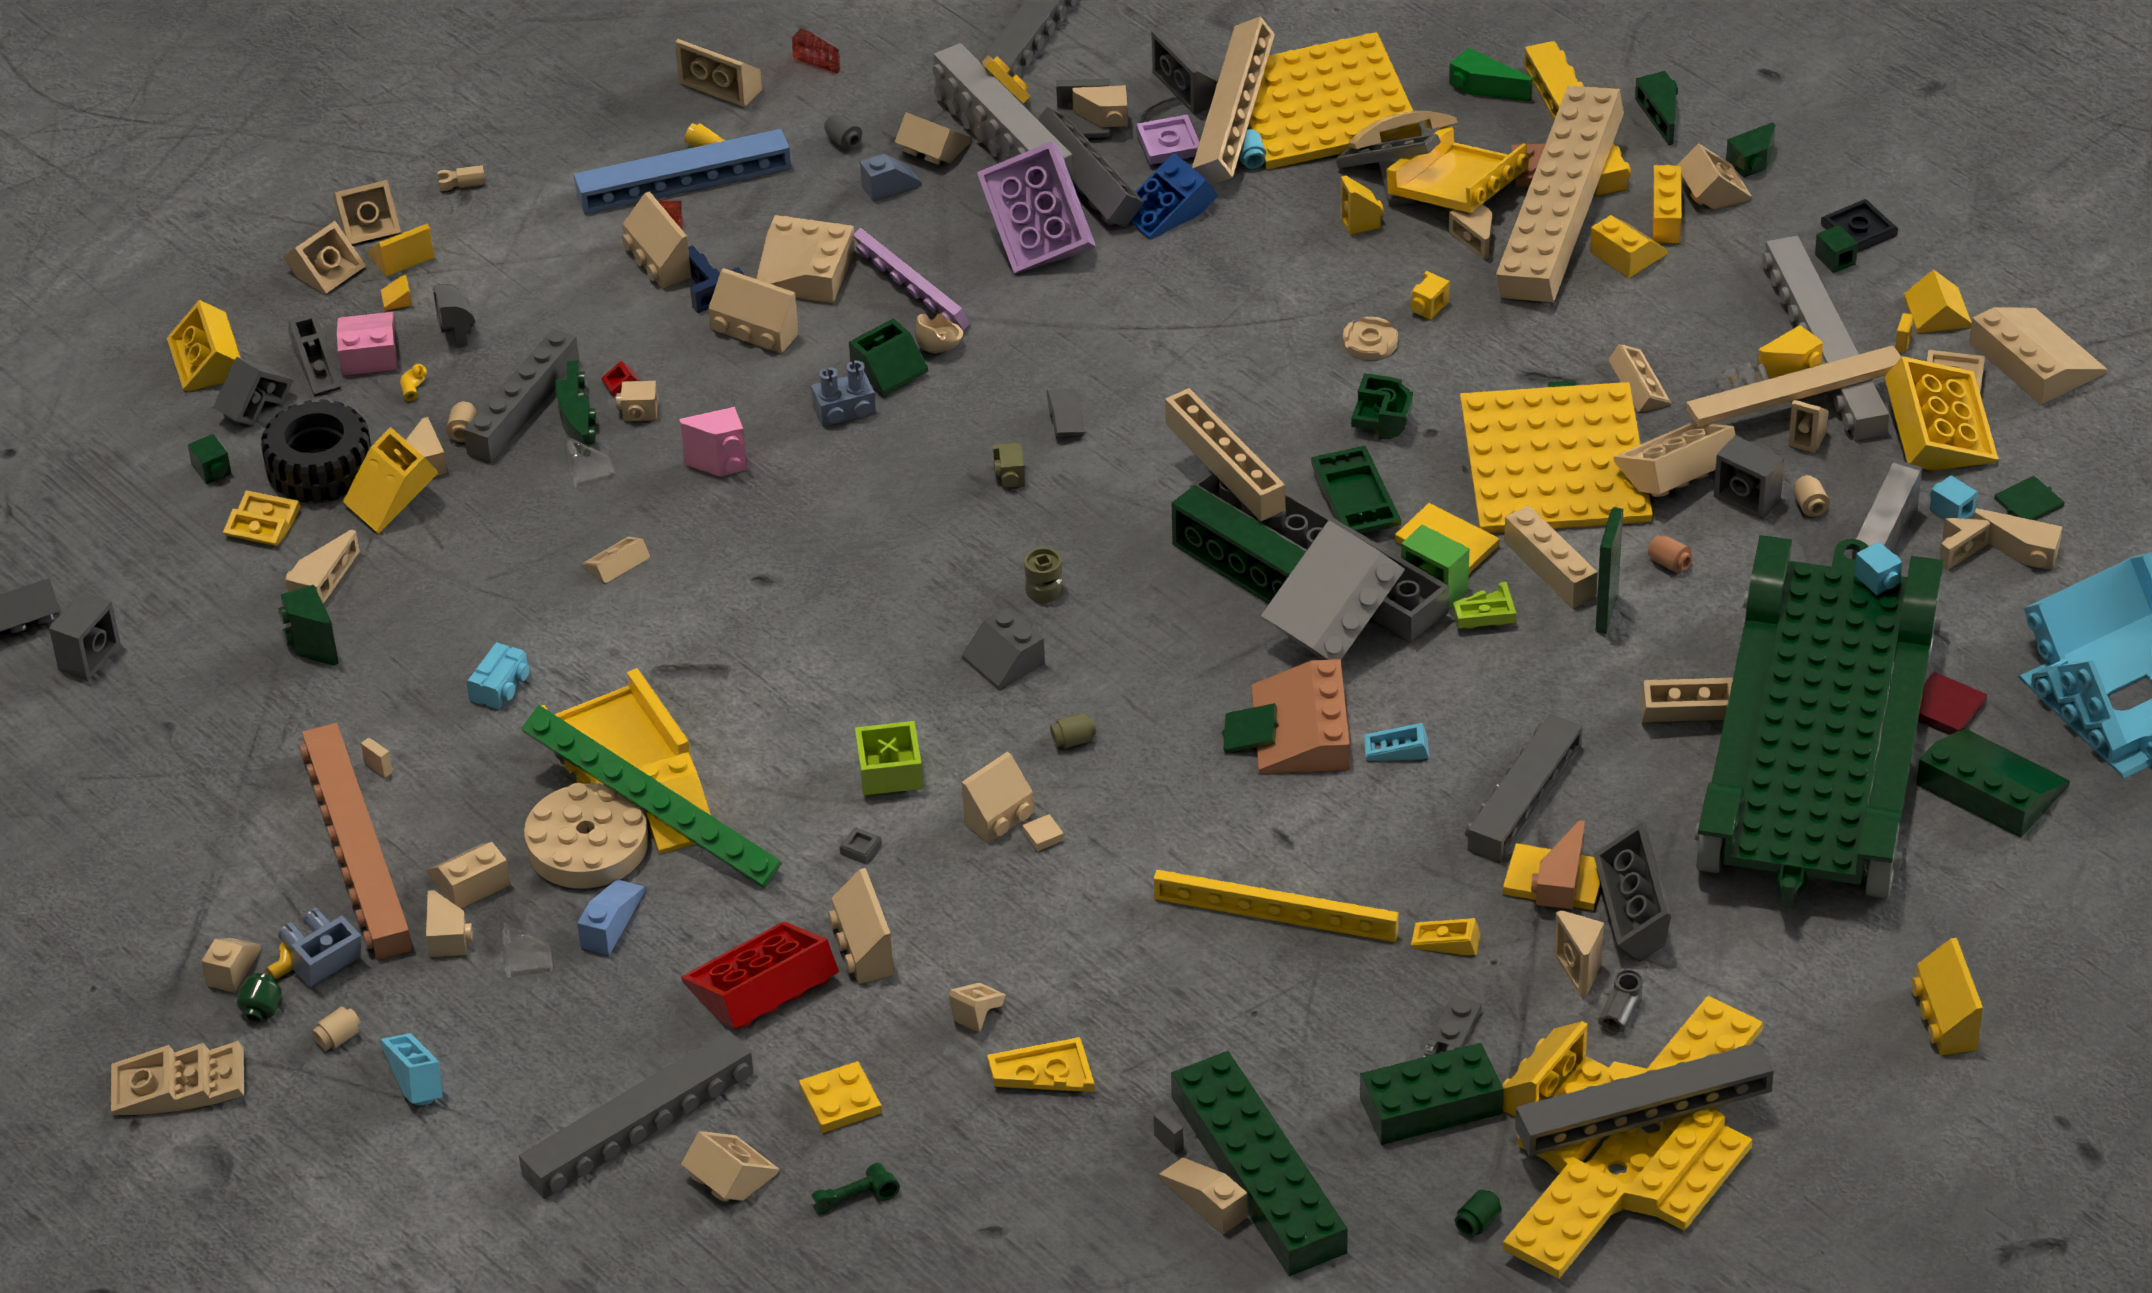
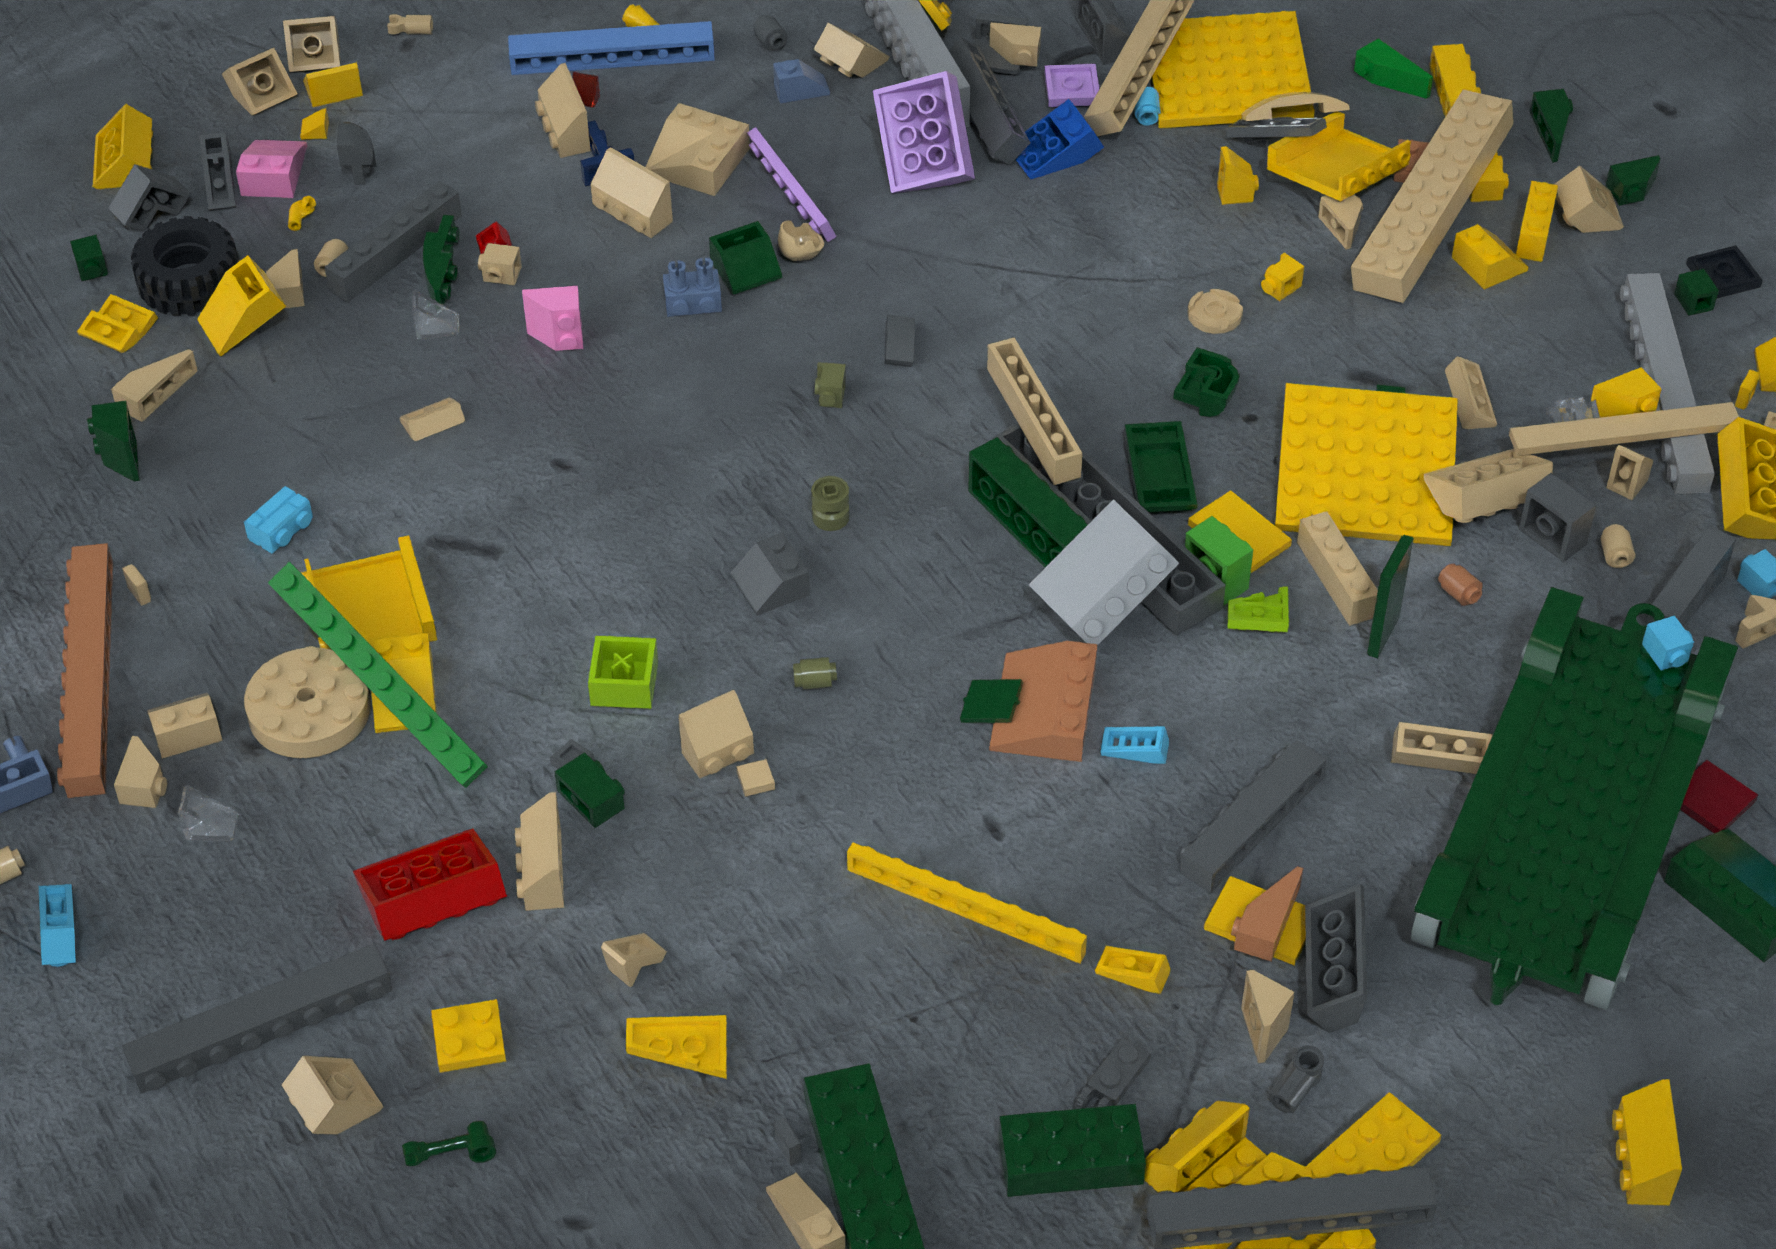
camera: 10 degrees right, 5 degrees up
(608, 916) = (301, 791): medium blue slope -> none
(889, 867) = (590, 789): none -> dark green brick

